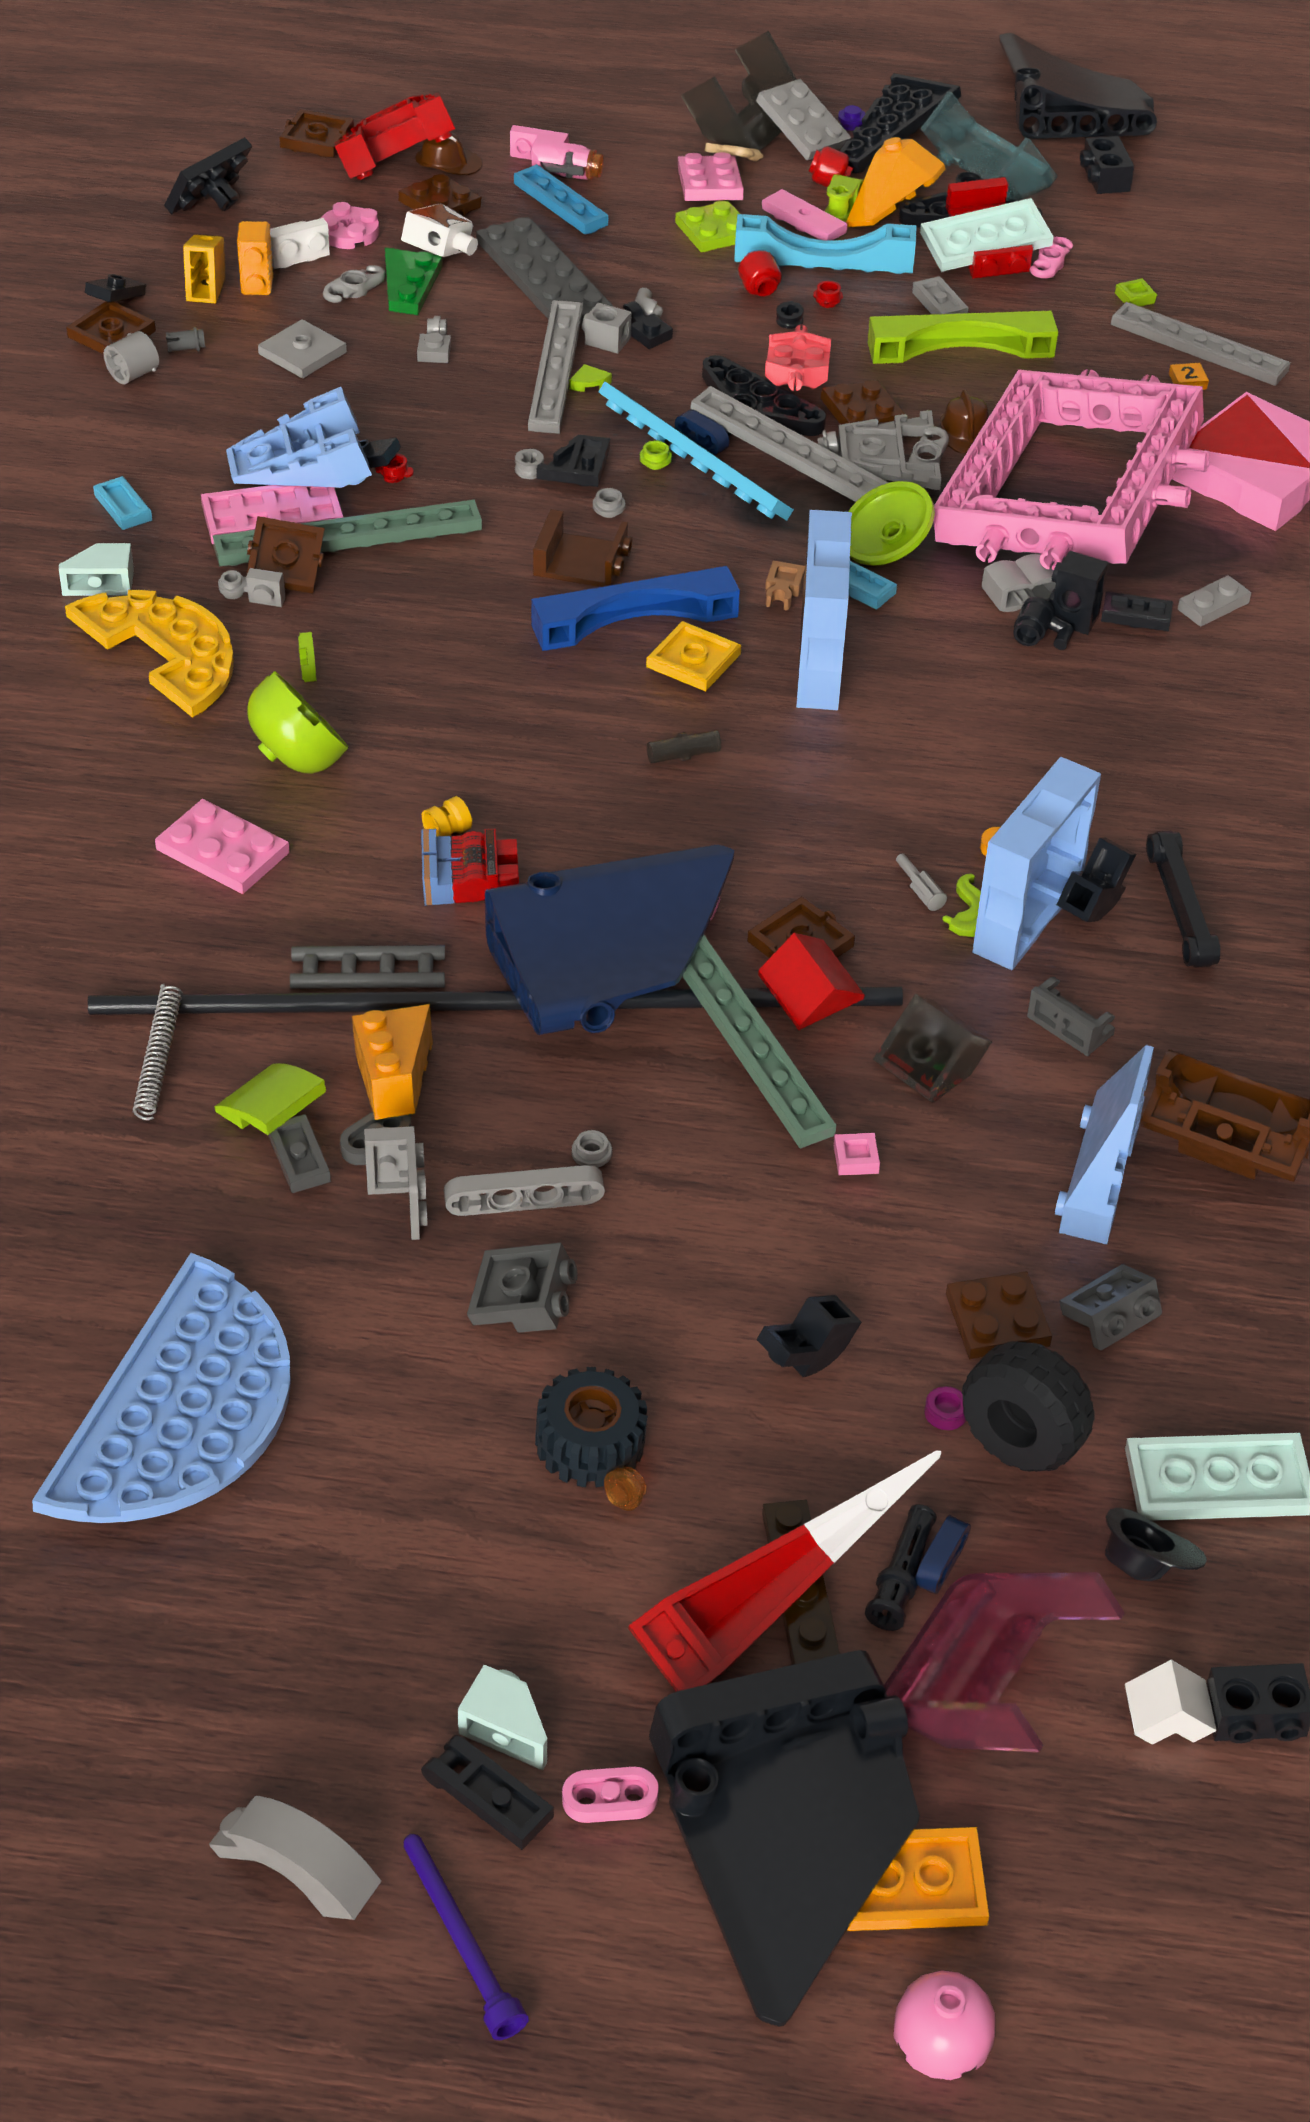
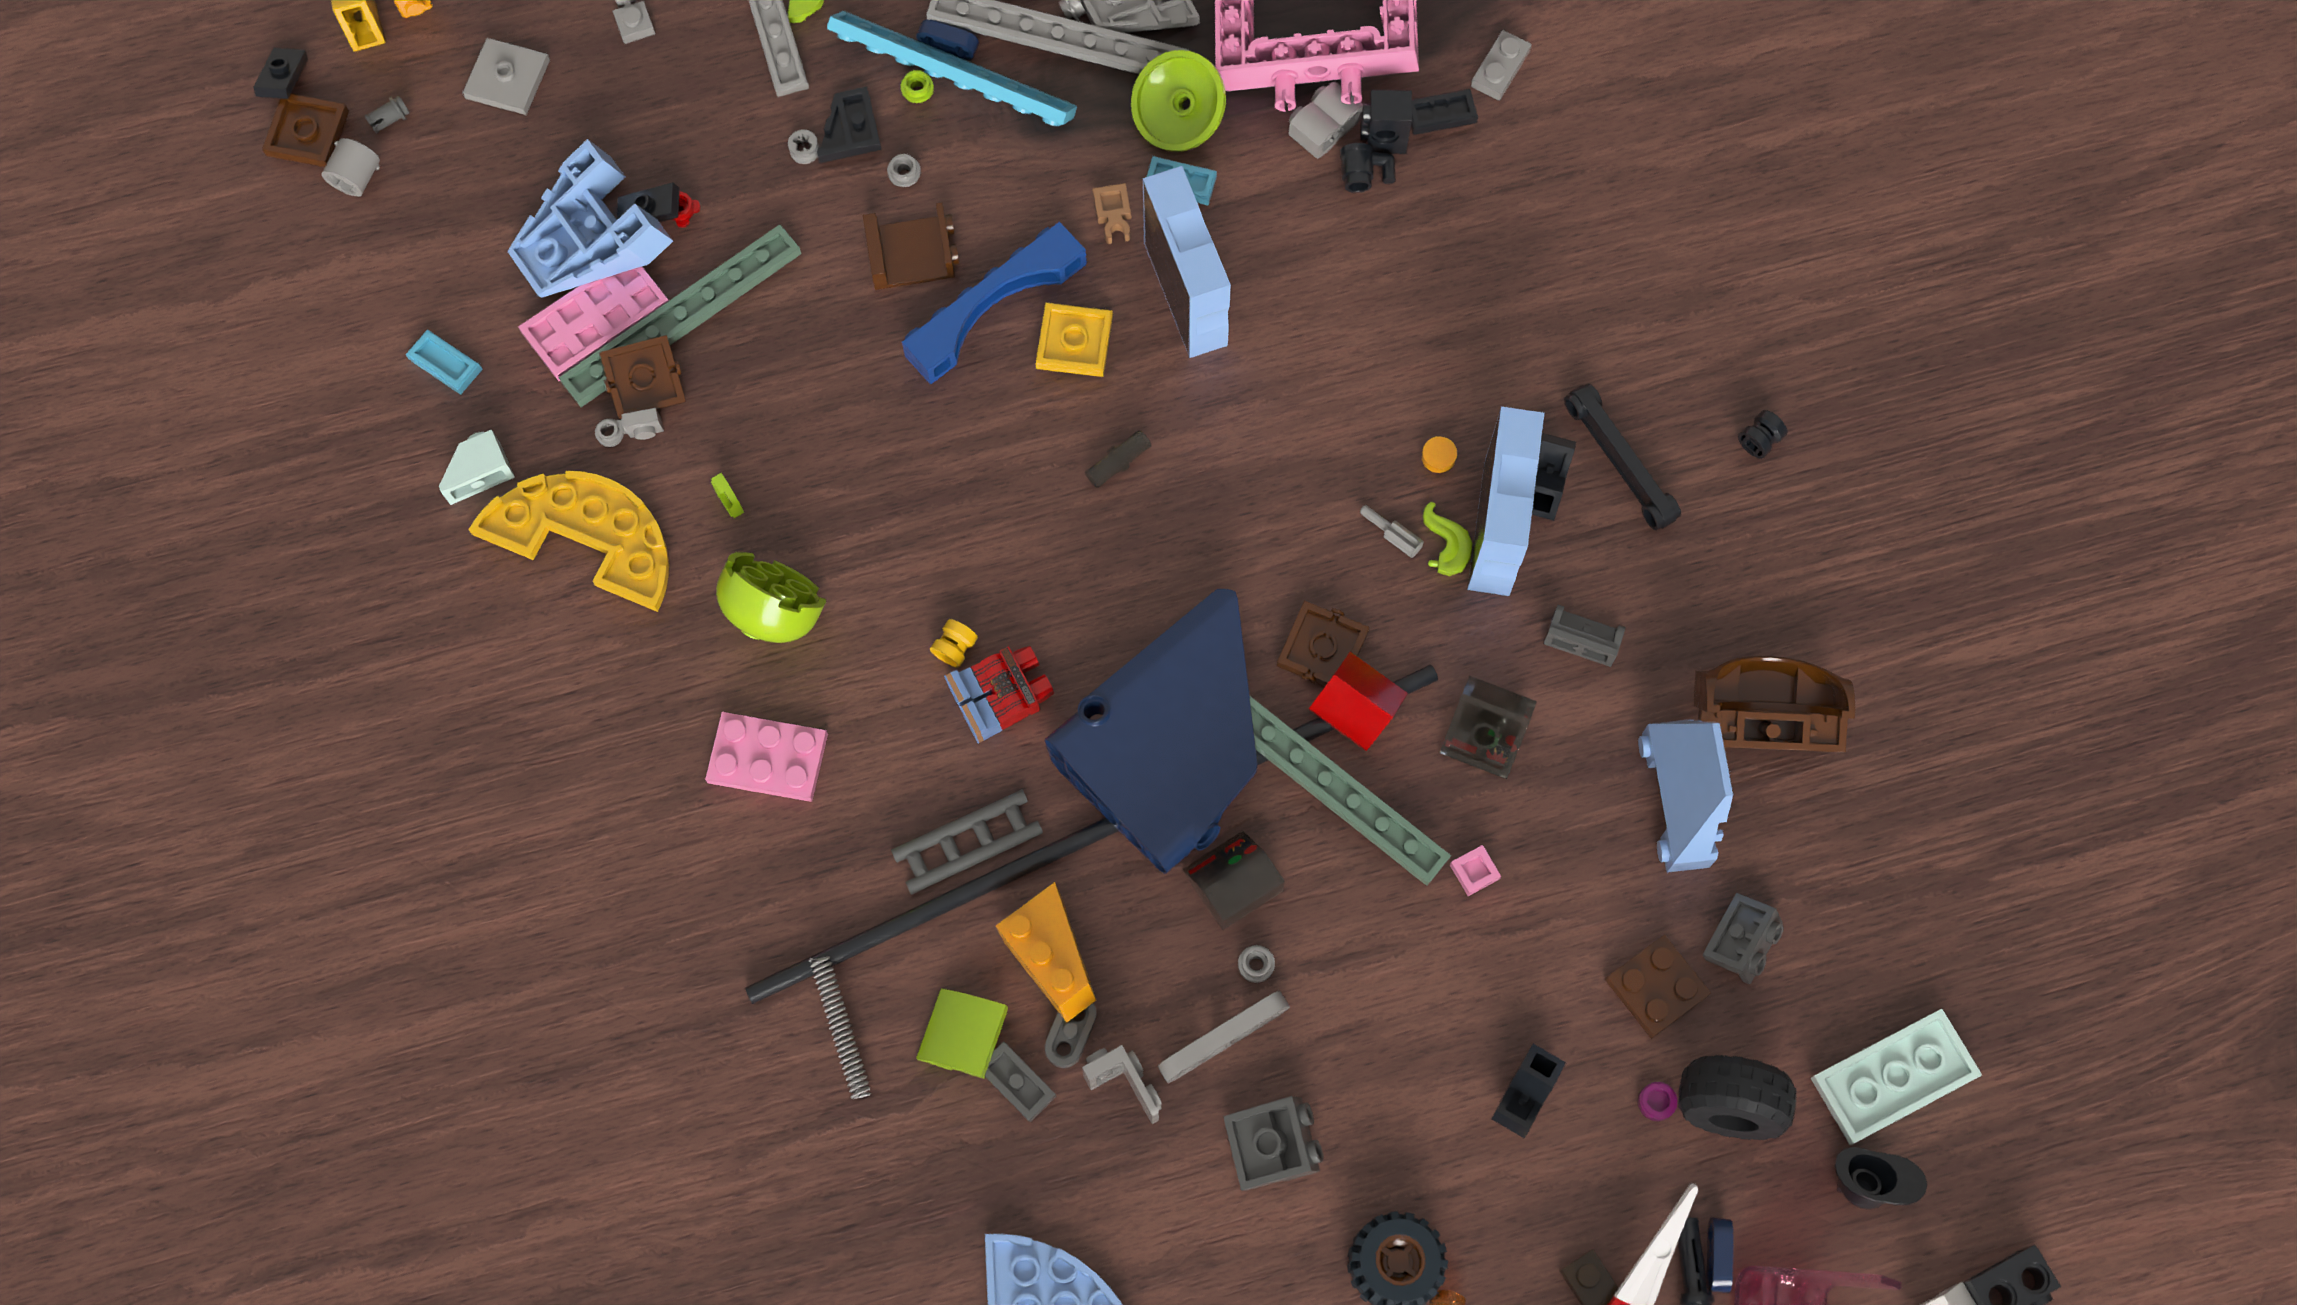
camera: 20 degrees left, 25 degrees up
(610, 1083) = (1234, 879): none -> clear smoke slope

